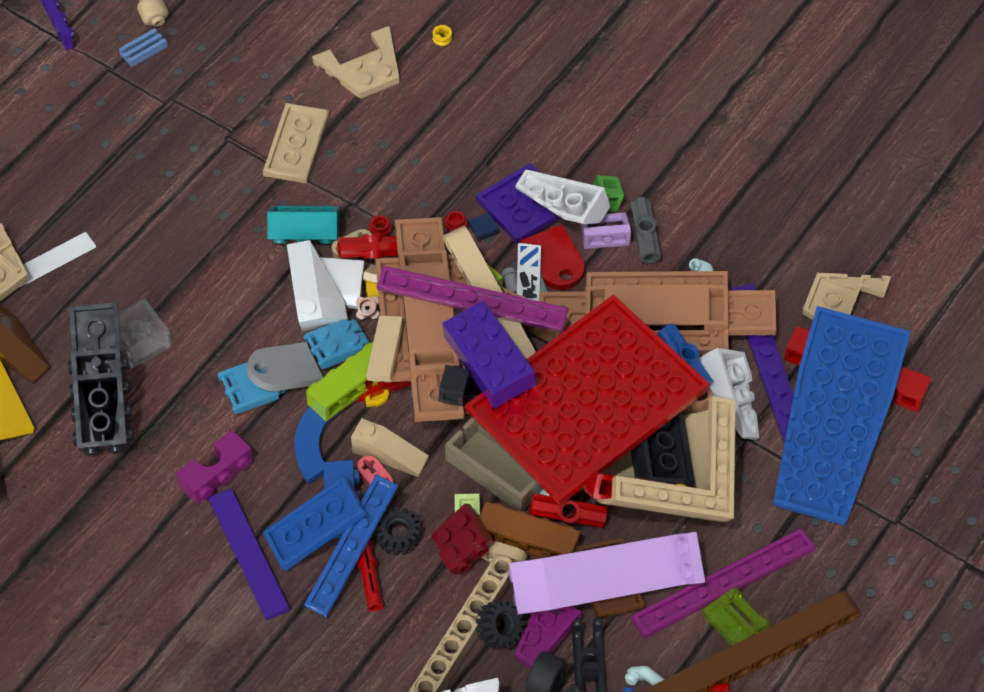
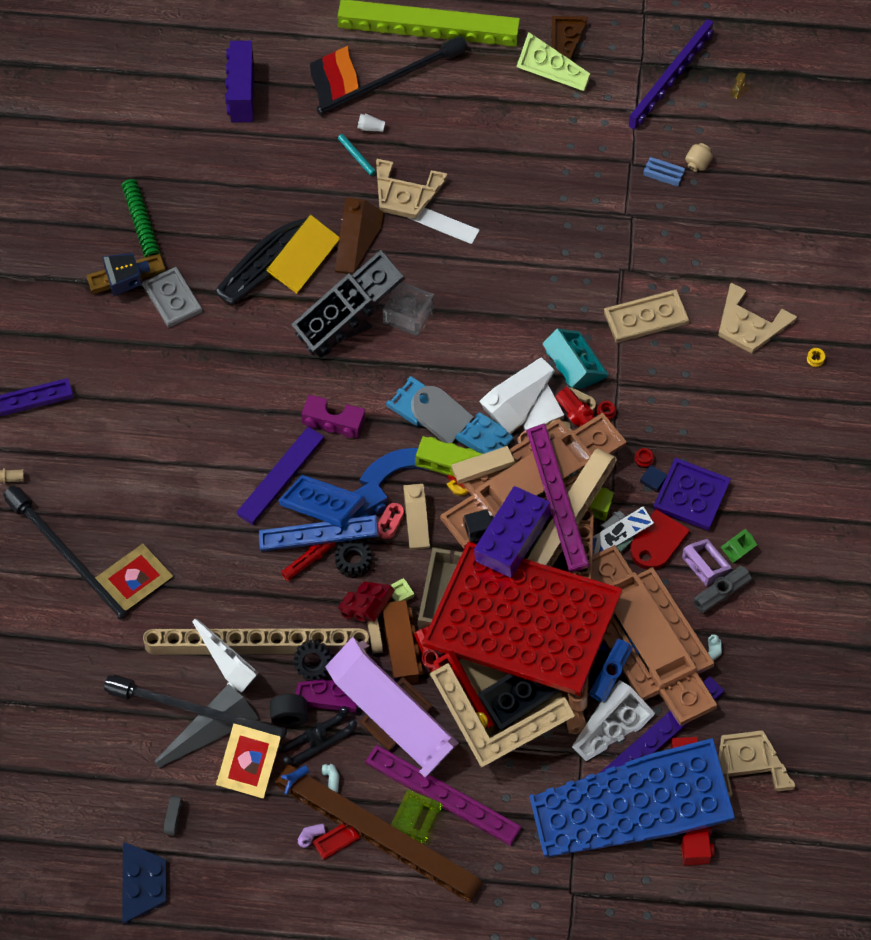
camera: 60 degrees right, 5 degrees up
(565, 197) = (705, 519): white wedge -> none

